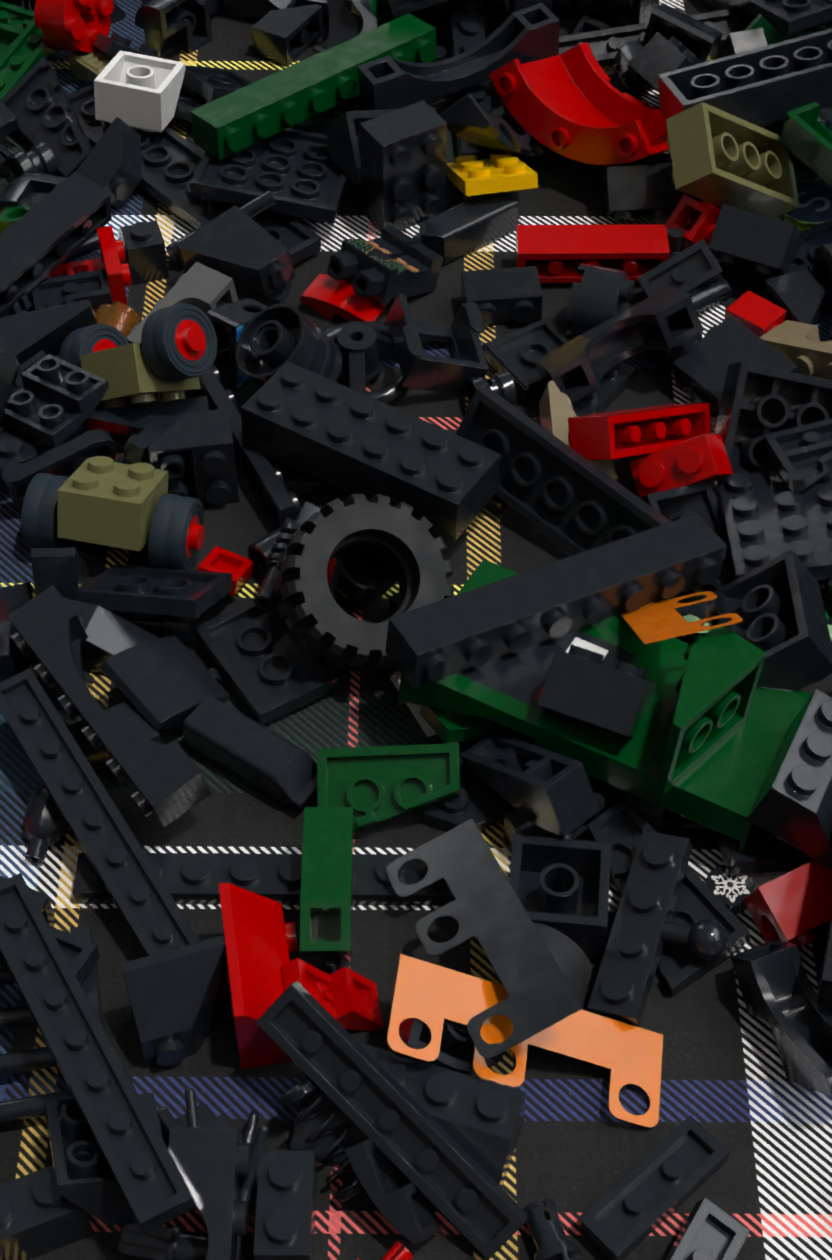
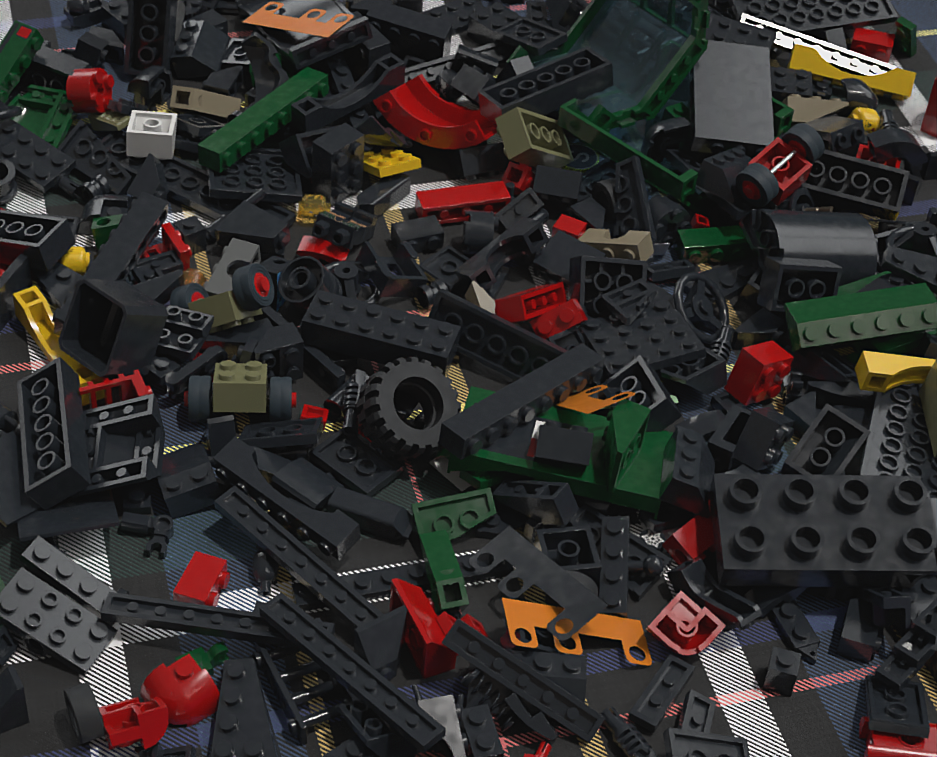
camera: 20 degrees left, 5 degrees down
(243, 54) = (203, 102): none -> dark tan slope
(350, 225) = (311, 206): none -> clear yellow head
(732, 1069) = (685, 626): none -> red brick

